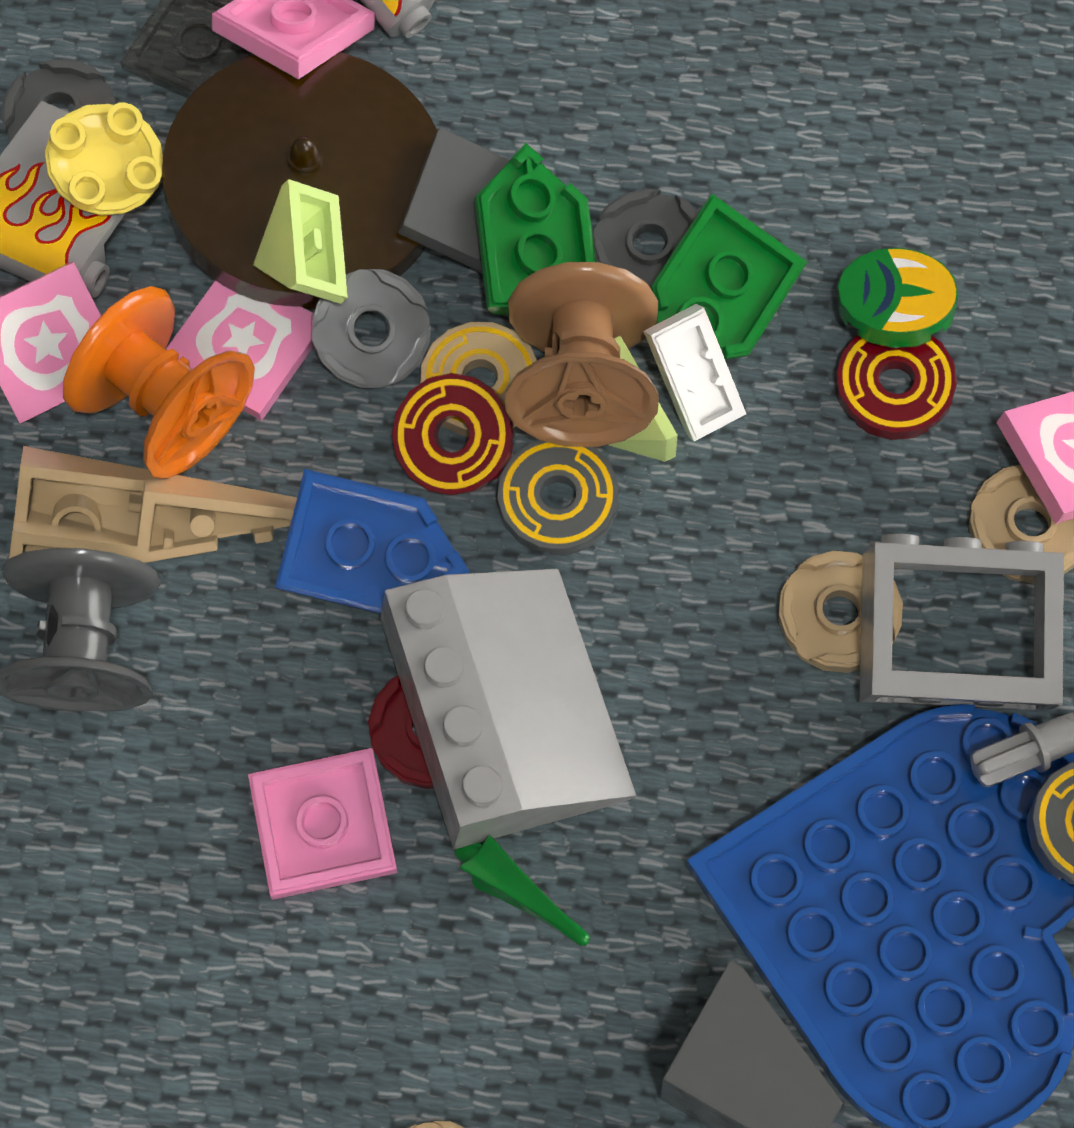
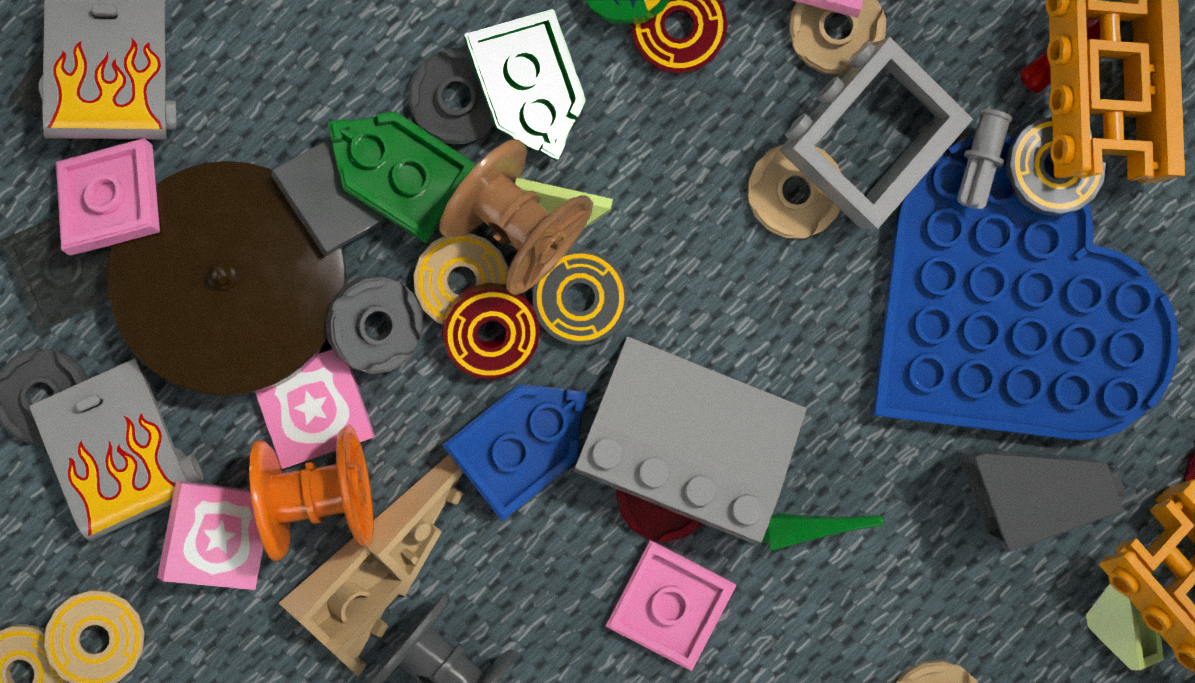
camera: 55 degrees left, 20 degrees up
(104, 158) = (116, 404): light yellow dish -> none
(305, 242) = (292, 328): yellowish green slope -> none
(695, 372) = (576, 150): white plate -> none

